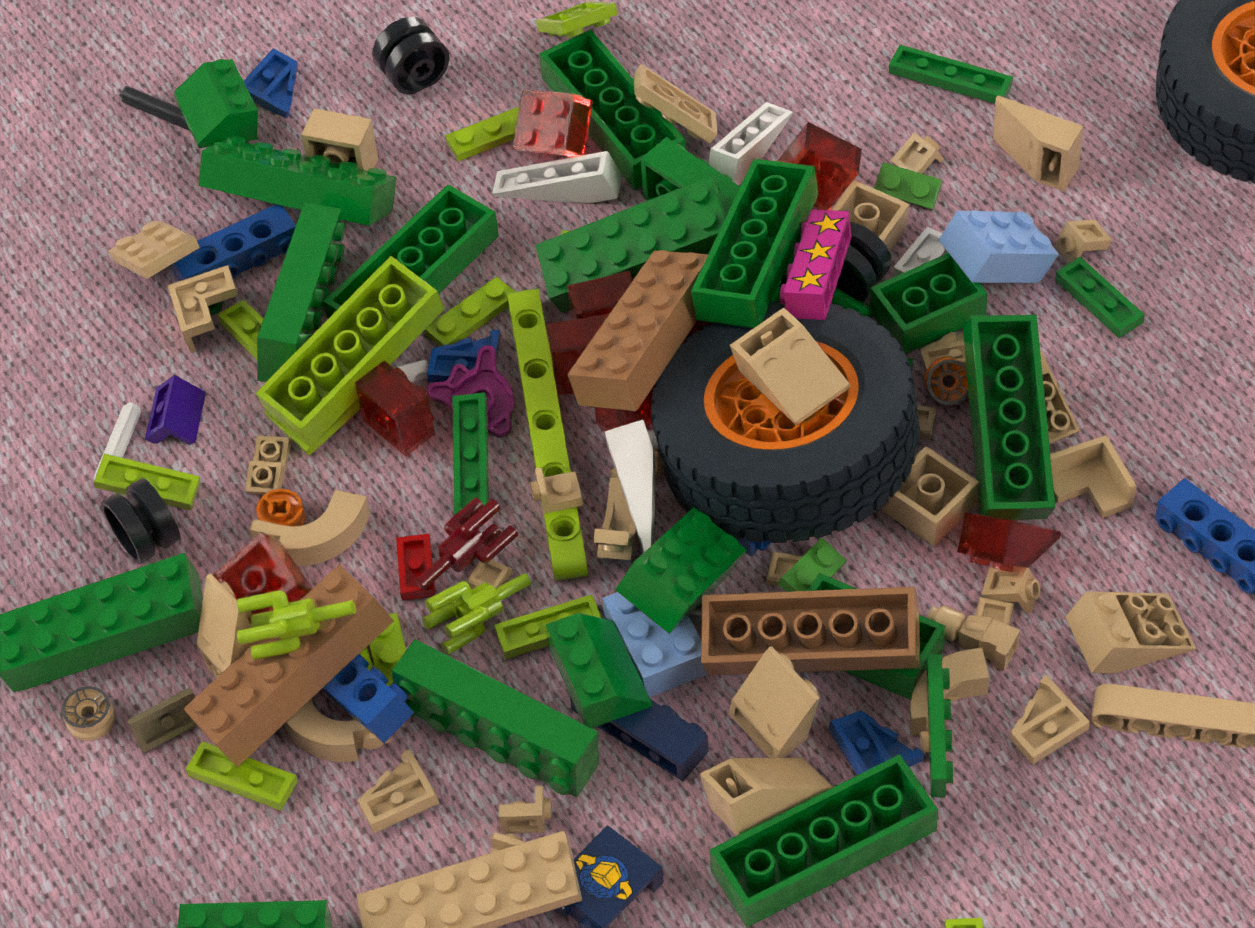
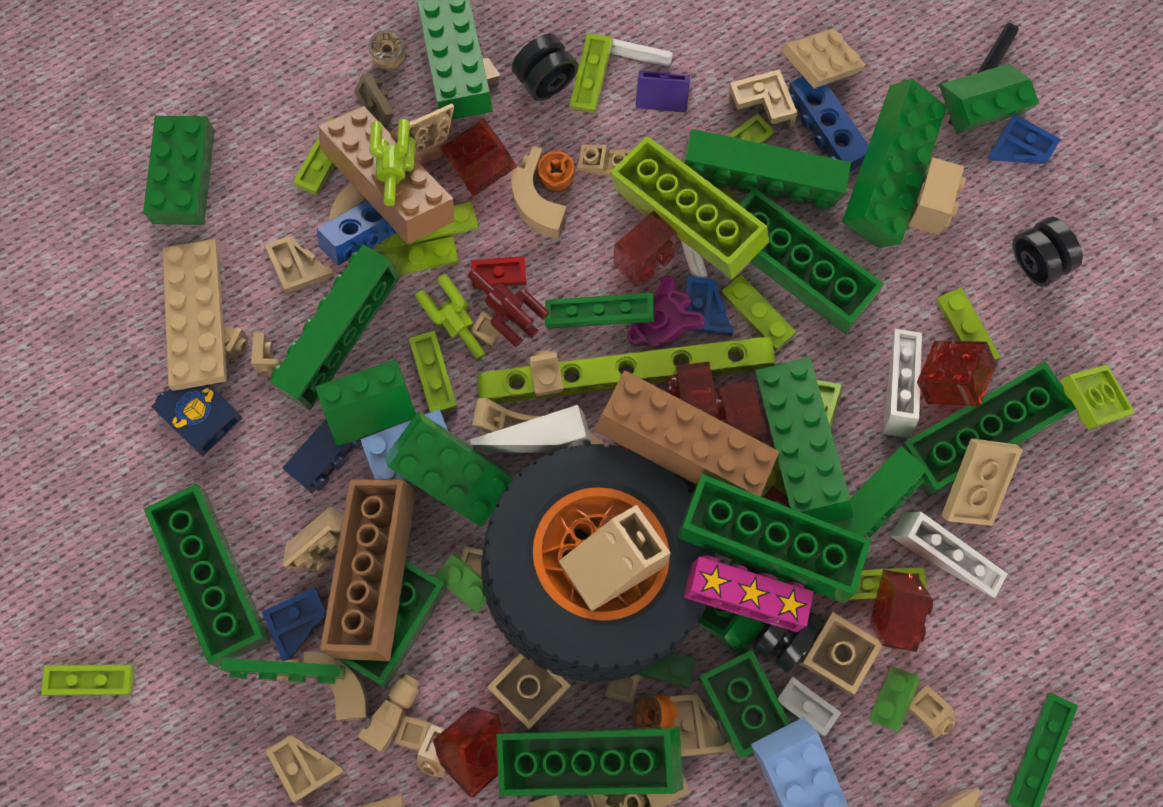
camera: 90 degrees right, 20 degrees up
(757, 789) = (252, 530): tan slope -> none

